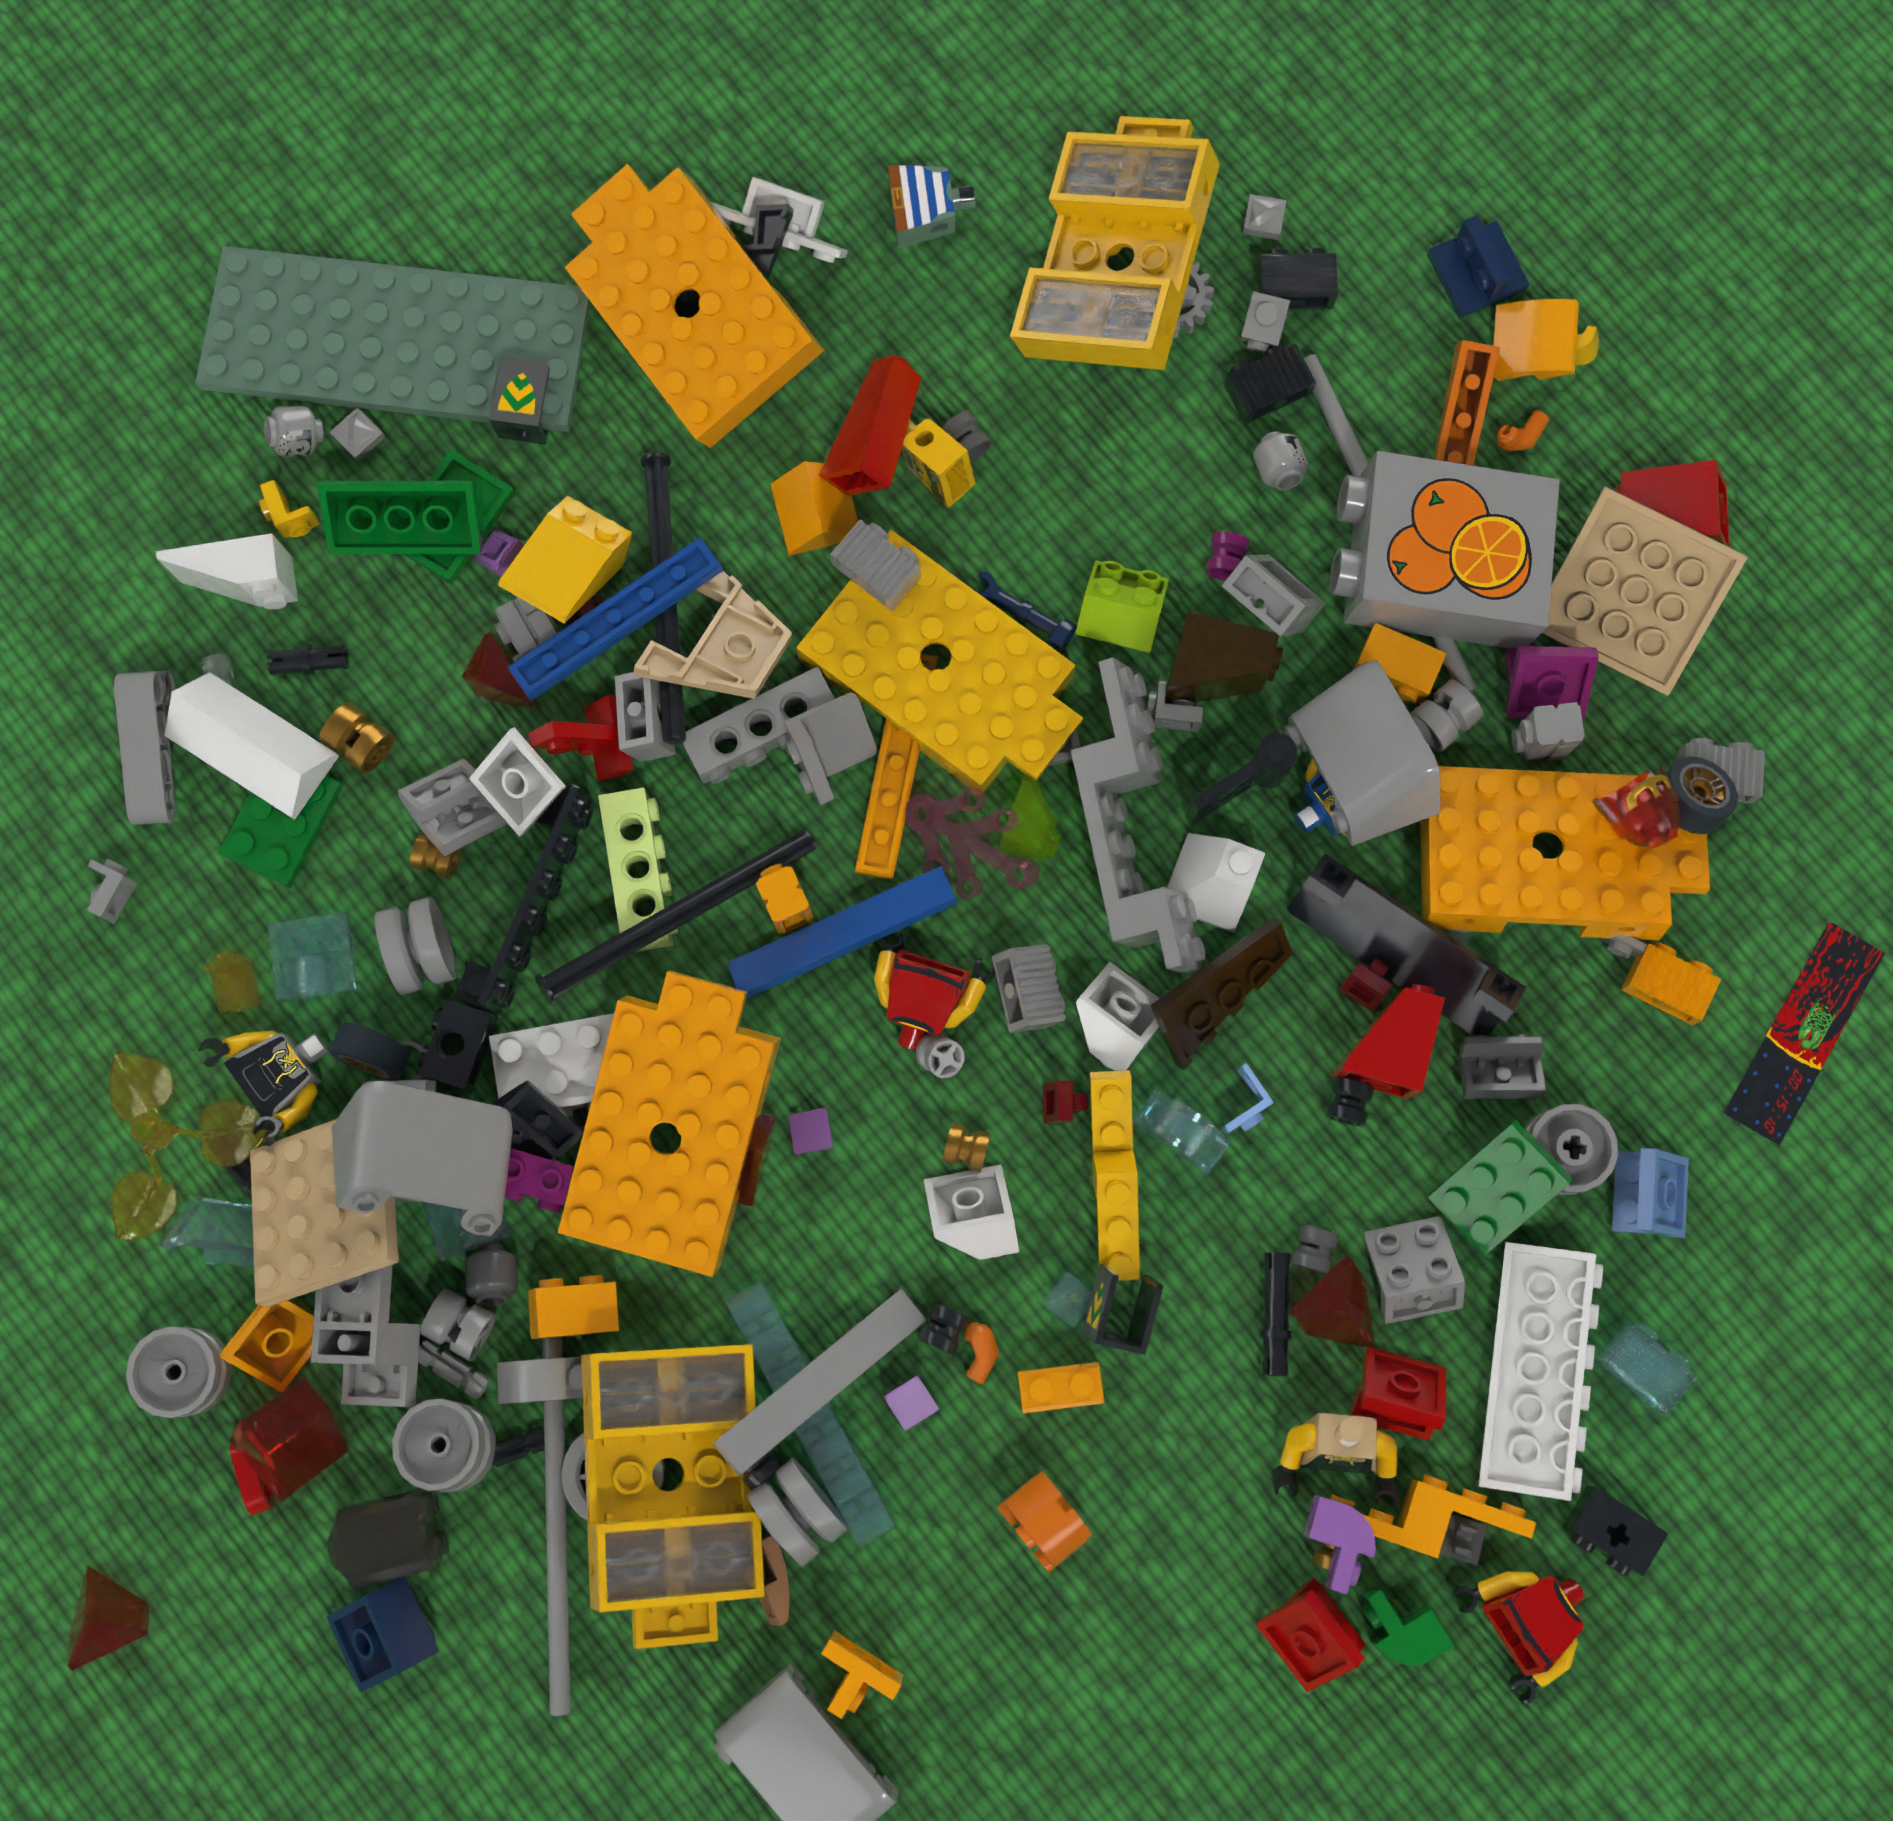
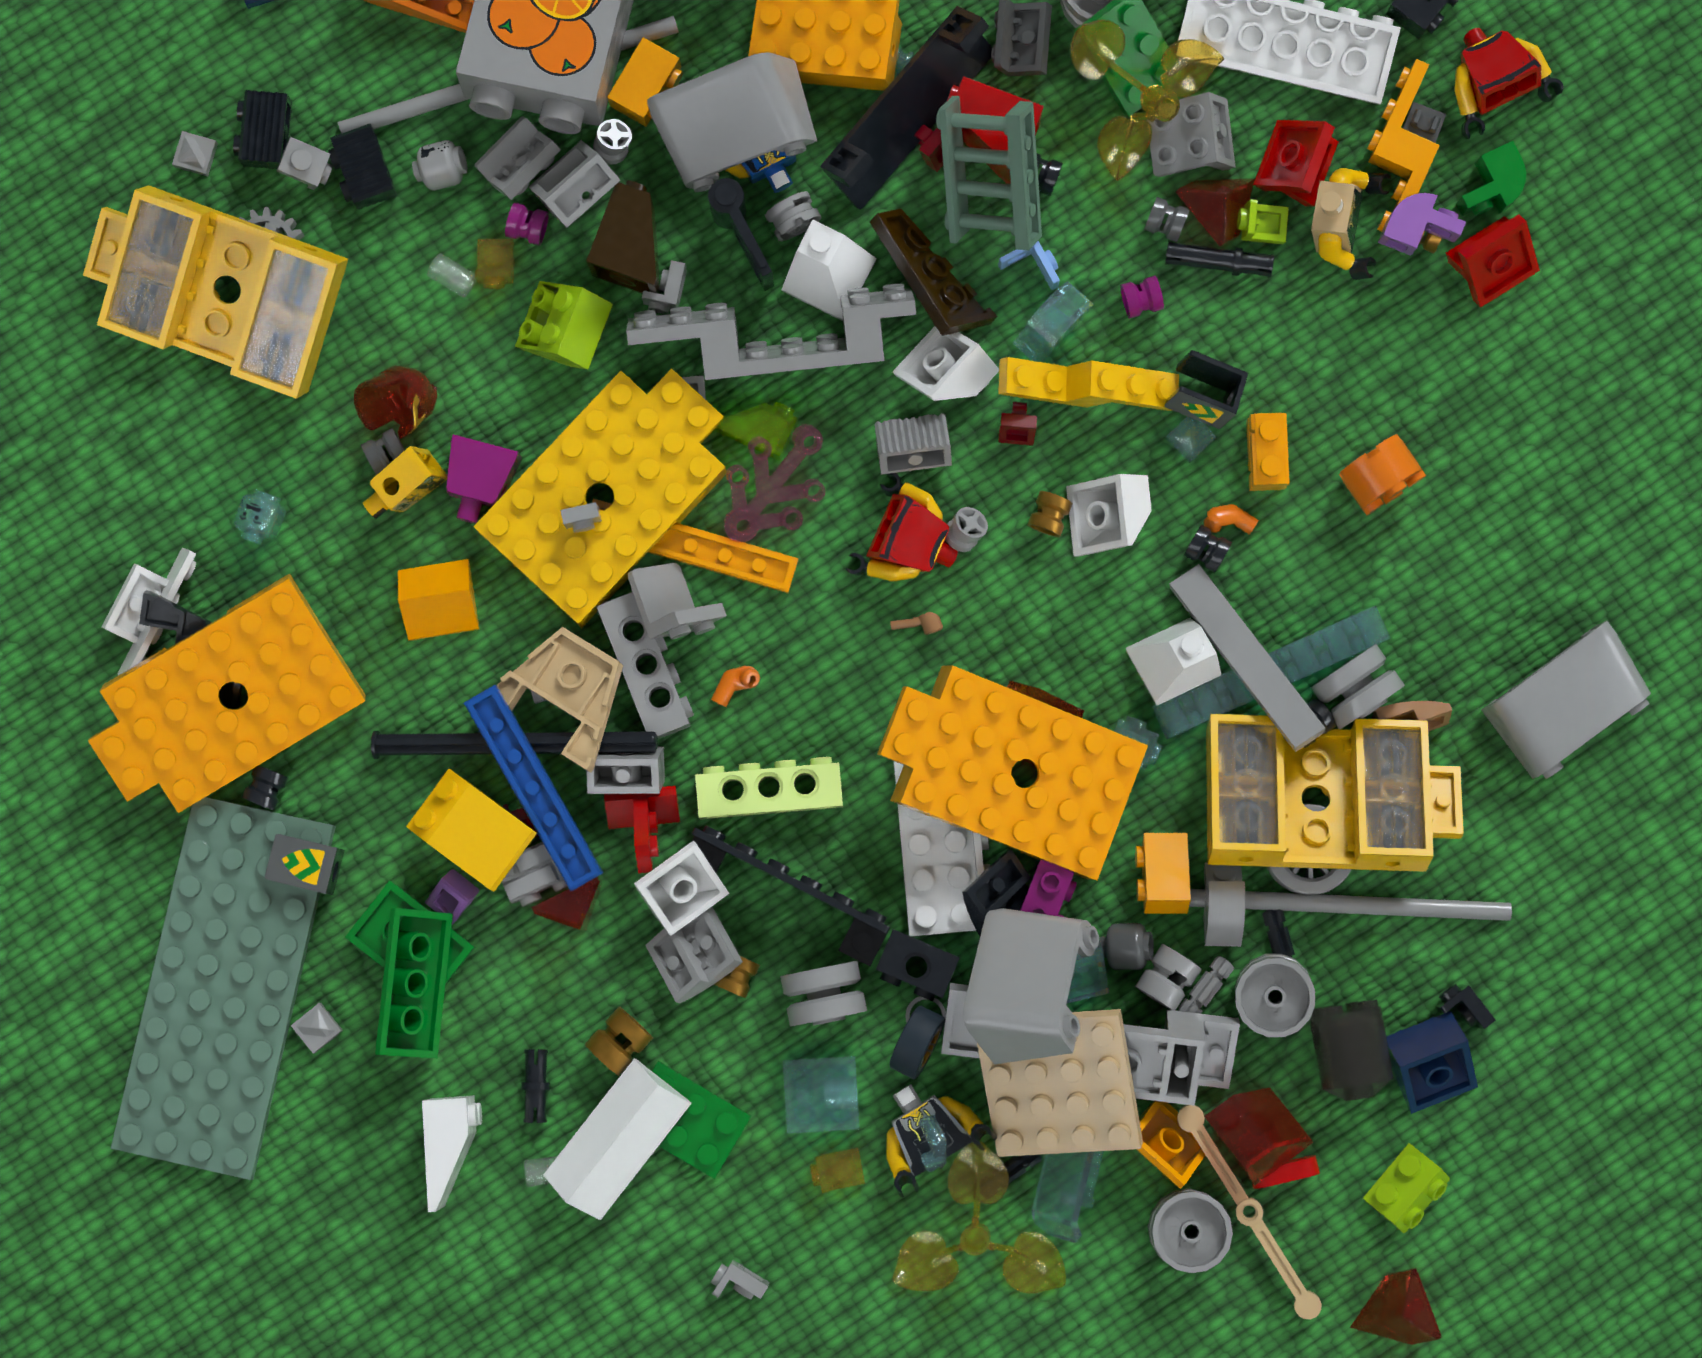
camera: 85 degrees left, 5 degrees up
(108, 1511) = (1306, 1303): none -> tan piece
(143, 747) = (605, 1239): light grey beam -> none
(239, 1618) = (1407, 1188): none -> lime bracket
(259, 1080) = (937, 1142): none -> clear light blue arm
(276, 509) = (385, 1107): yellow bracket -> none
(293, 431) = (309, 1087): light grey head -> none
(445, 1677) = (1472, 1008): none -> black bracket
(601, 354) = (264, 787): none -> black wheel
(672, 917) = (819, 753): black axle -> none
(730, 1263) = (1136, 730): none -> clear light blue bracket
(754, 824) = (735, 680): none -> orange arm
(784, 899) = (812, 654): light orange brick -> none
(811, 1131) = (1022, 651): medium lavender slope -> none
(812, 1300) = (1175, 660): none -> white slope
(835, 1026) = (930, 623): none -> medium nougat hand
(842, 932) = (846, 607): blue tile -> none
(861, 1668) = (1496, 646): light orange bracket -> none
(874, 429) = (372, 533): red slope -> none
(876, 564) = (511, 538): light grey brick -> none
(884, 318) = (259, 516): none -> clear light blue head
(906, 634) = (581, 517): none -> light grey plate
(911, 1403) = (1268, 584): medium lavender slope -> none
(925, 202) = (145, 469): torso -> none
(951, 533) = (479, 474): none -> magenta torso
(1026, 440) = (395, 395): none -> clear red helmet
(1060, 633) = (559, 414): dark blue piece -> none
(1163, 486) = (451, 275): none -> clear piece
(1182, 530) = (495, 263): none -> clear yellow bracket
(1222, 1229) = (1142, 296): none -> magenta wheel
(1268, 834) = (792, 216): none -> light grey wheel
(1297, 538) = (517, 158): none -> light grey bracket
(1323, 1360) = (1263, 222): none -> lime bracket
(1338, 635) = (618, 134): none -> light grey wheel
(1358, 1064) = (1019, 158): none -> sand green fence
(1450, 711) = (695, 42): light grey wheel -> none
(1487, 1255) = (1186, 68): none -> clear yellow plant

